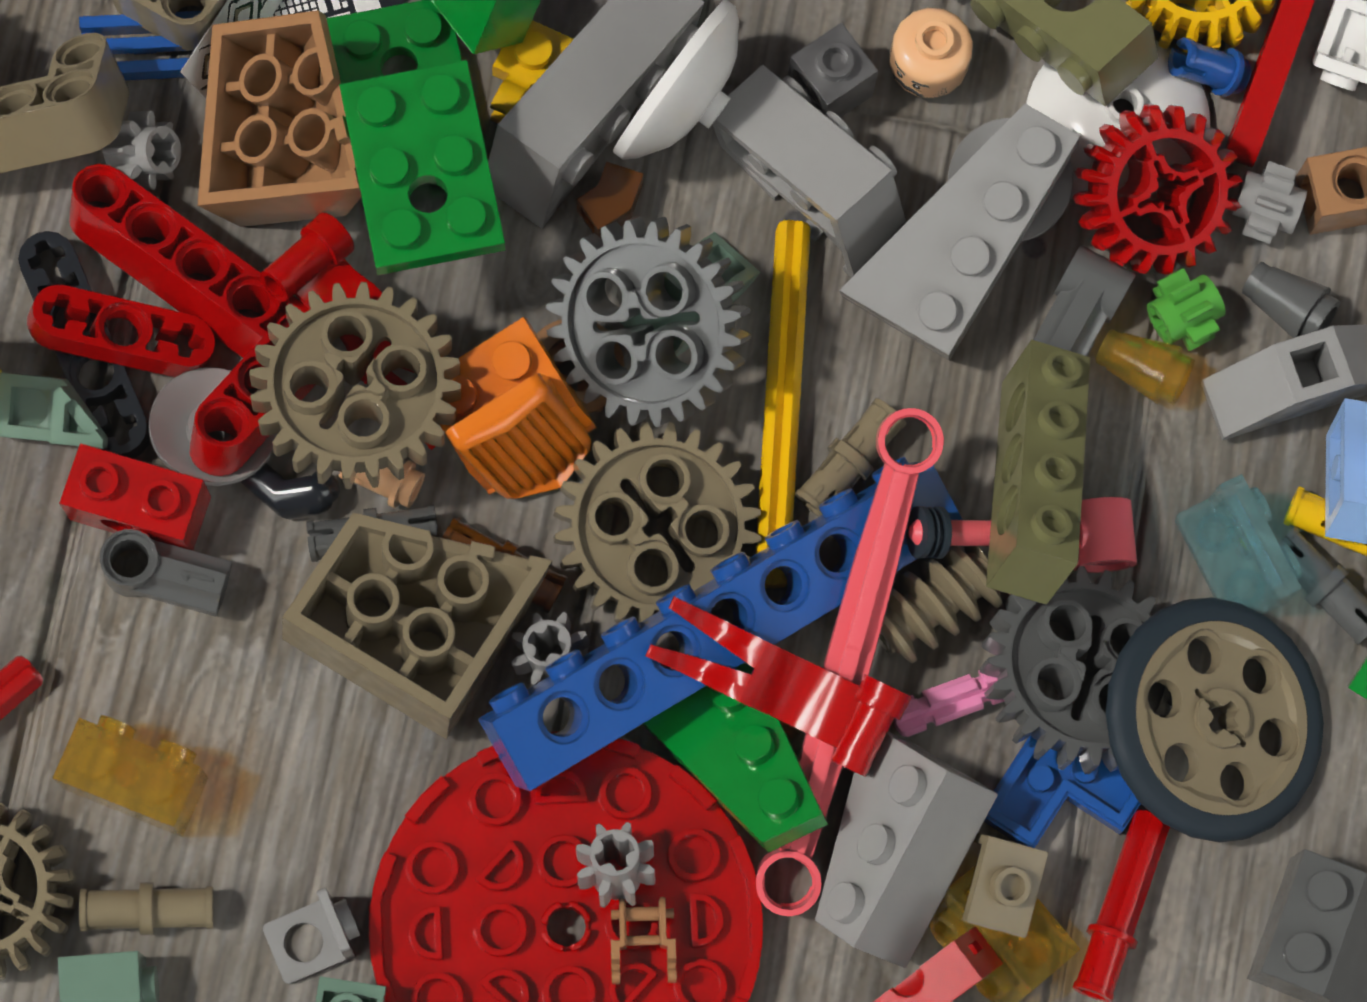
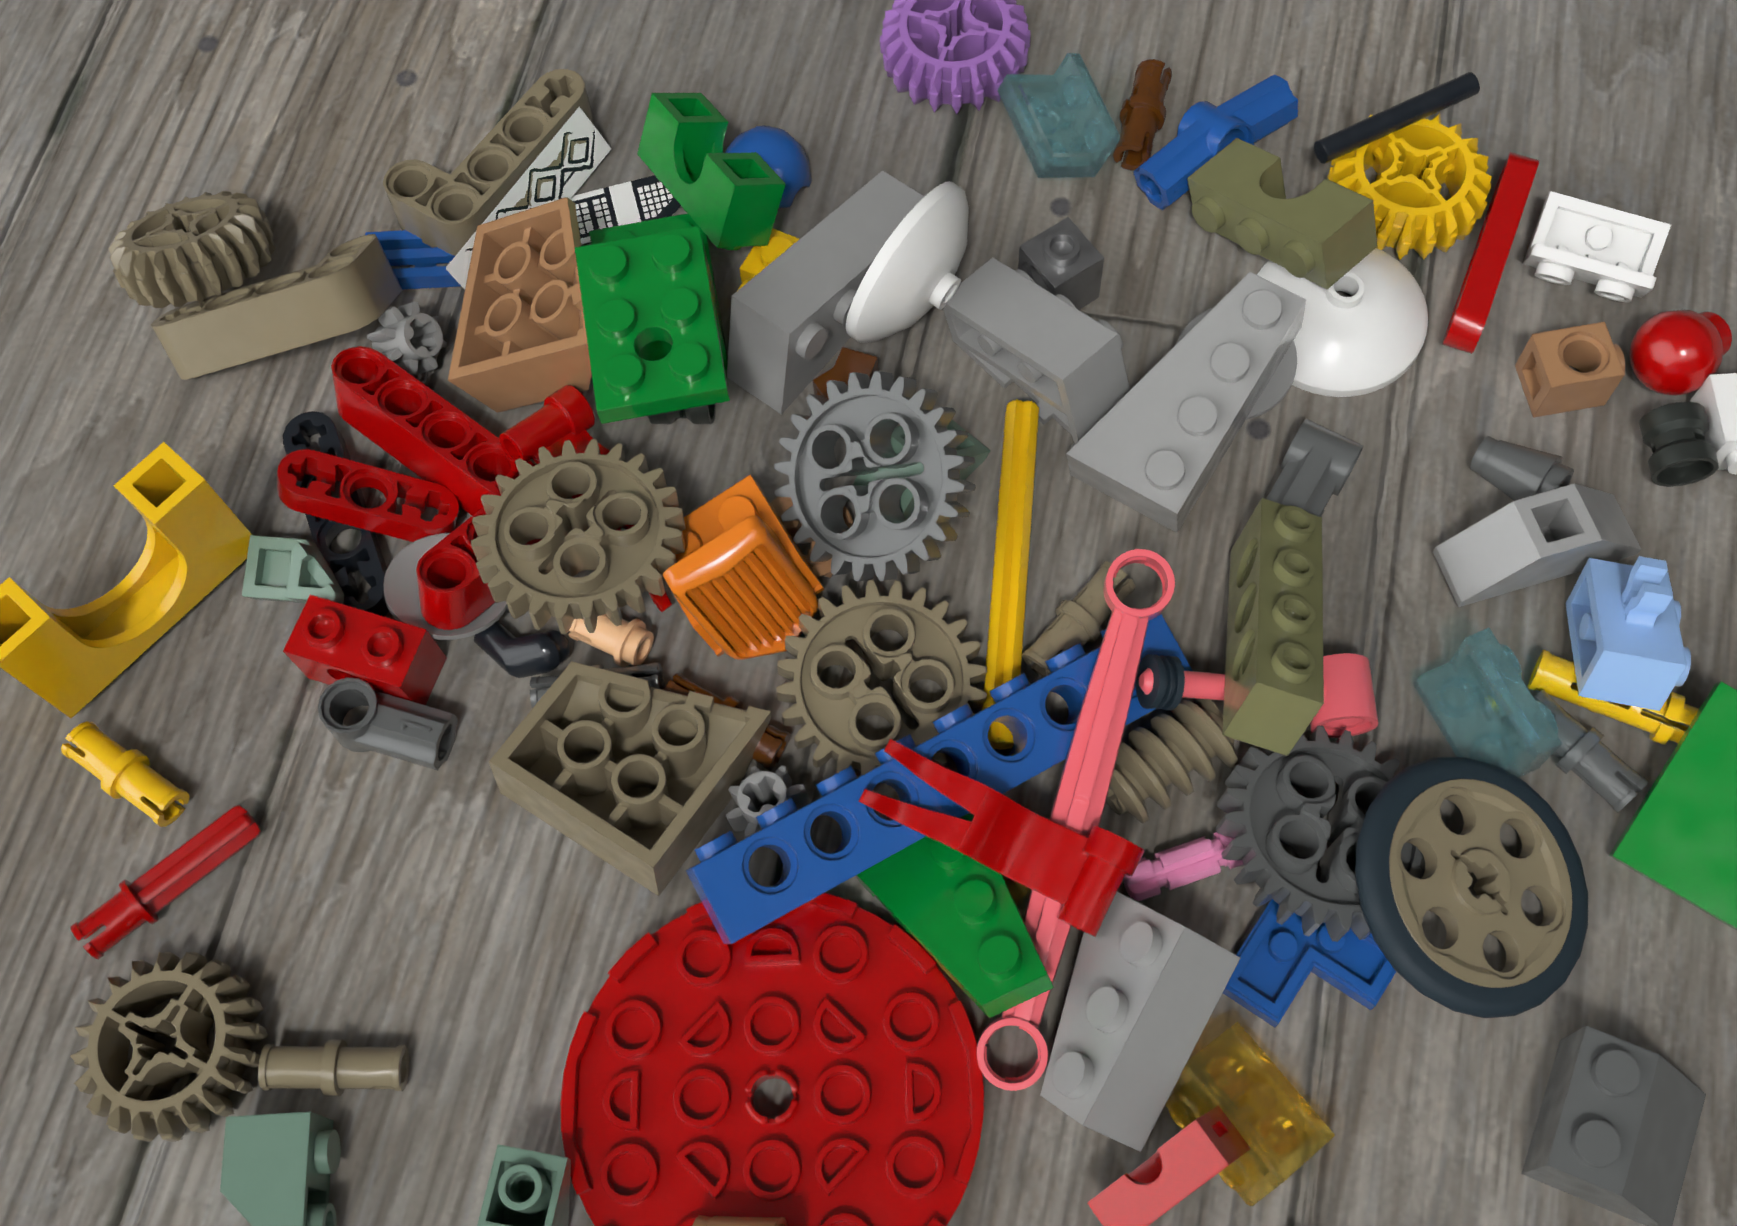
camera: 15 degrees right, 10 degrees down
(132, 777) = (330, 927): clear yellow brick -> none
(333, 922) = (531, 1091): light grey bracket -> none
(627, 852) = (817, 1008): light grey gear -> none
(643, 914) = (851, 1084): medium nougat piece -> none
(930, 52) = (1154, 250): light nougat head -> none
(1004, 885) = (1249, 1060): dark tan bracket -> none
(1121, 907) = (1378, 1091): red axle -> none
(1146, 365) = (1377, 532): clear yellow cone -> none
(1180, 230) = (1406, 405): red gear -> none
(1186, 309) = (1416, 478): bright green gear -> none
(1221, 70) = (1436, 266): blue pin -> none
(1269, 202) = (1494, 380): light grey gear -> none

